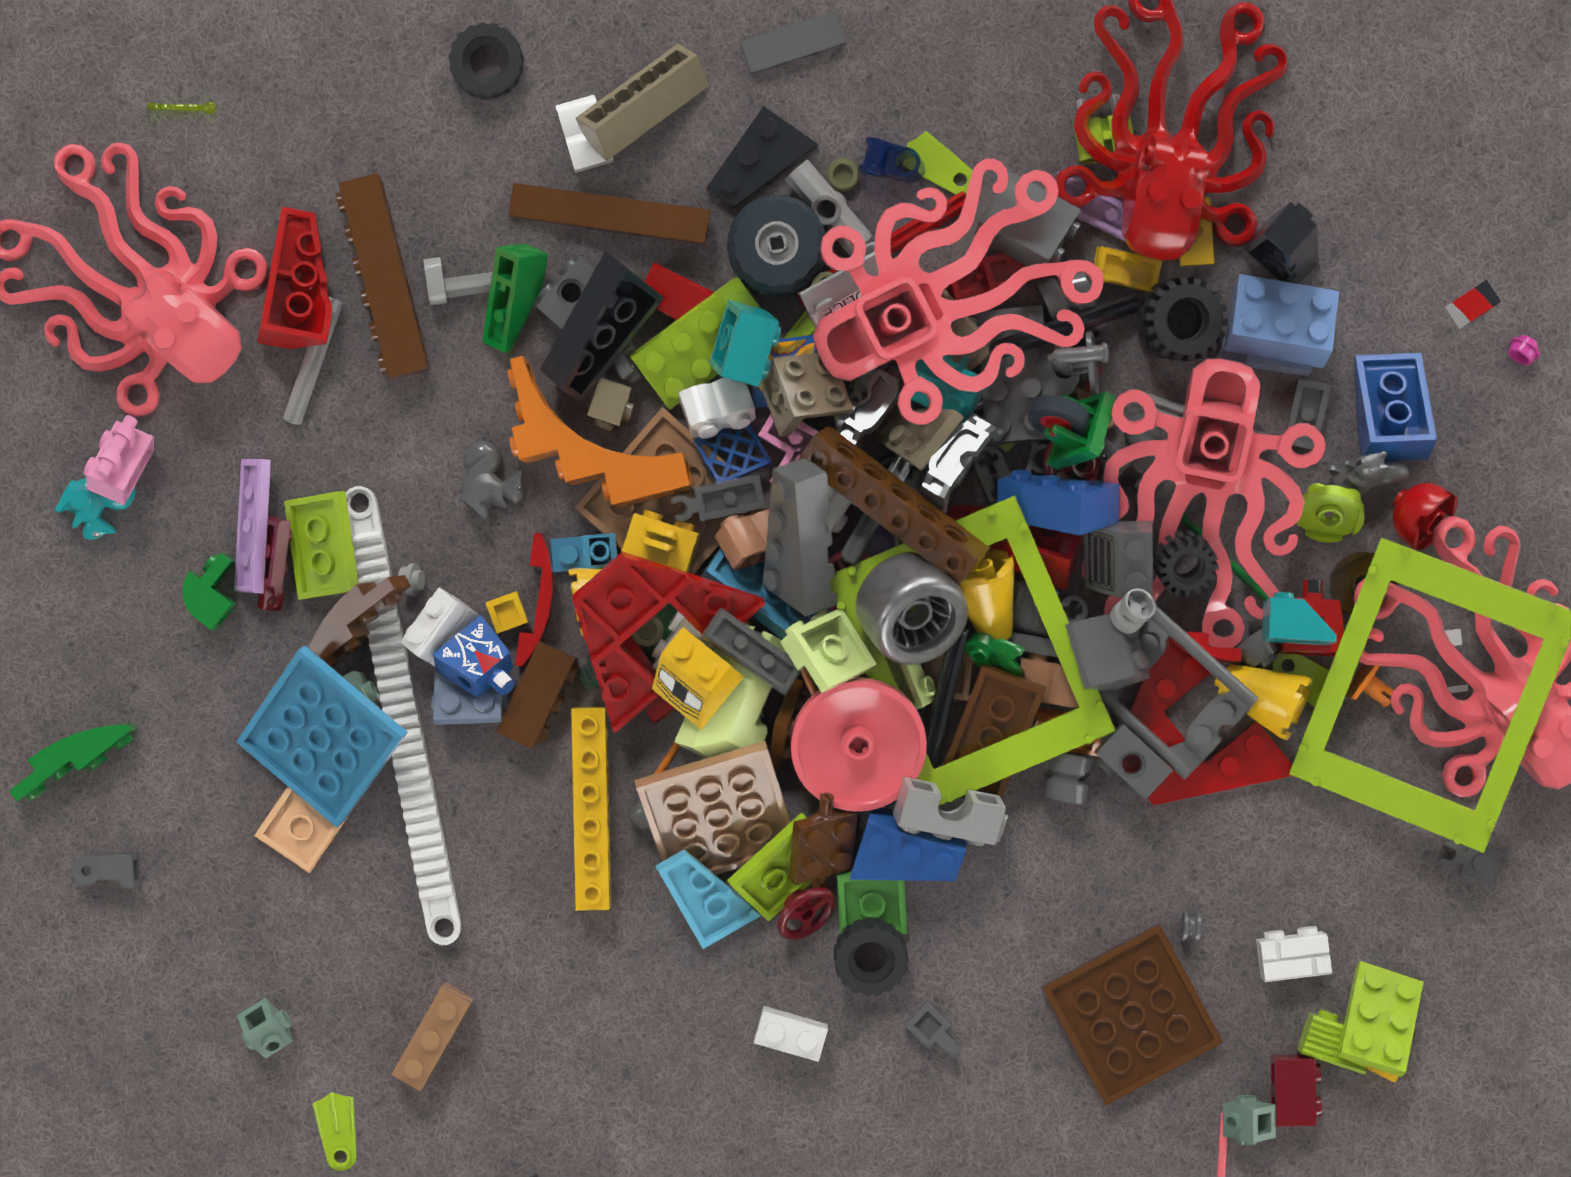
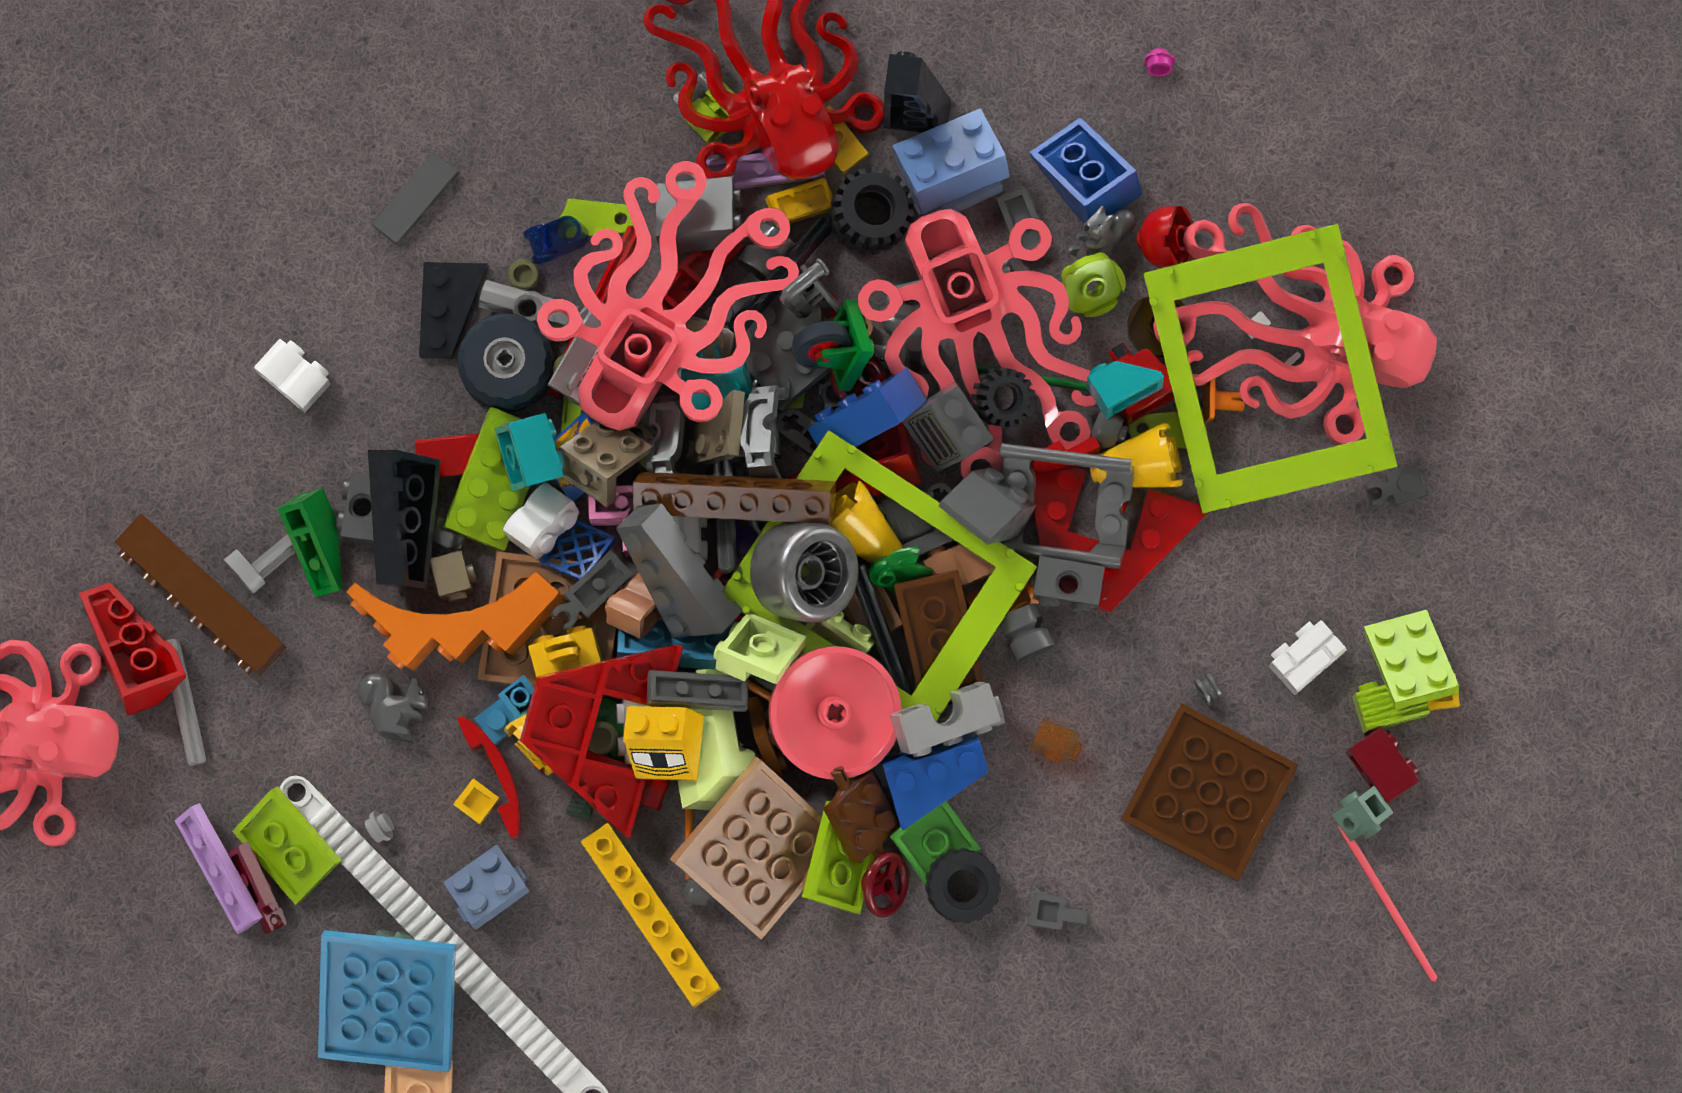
camera: 30 degrees left, 10 degrees down
(88, 508) = (67, 934): teal animal -> none
(120, 461) = (72, 884): bright pink brick -> none
(201, 592) = (211, 952): green brick -> none
(347, 620) = (346, 897): slope -> none
(437, 624) = (428, 849): white brick -> none
(461, 54) = (168, 346): black tyre -> none
(476, 660) = (475, 853): blue torso -> none
(538, 695) = (546, 852): reddish brown brick -> none
(610, 213) = (354, 425): reddish brown slope -> none
(642, 101) = (323, 318): dark tan brick -> none
(704, 899) = (793, 928): medium azure wing -> none
(791, 1033) = (939, 993): white brick -> none
(1030, 887) = (1056, 742): none -> clear orange brick
(1133, 610) = (984, 458): light grey wheel -> none
(1473, 304) = (1095, 54): sticker -> none

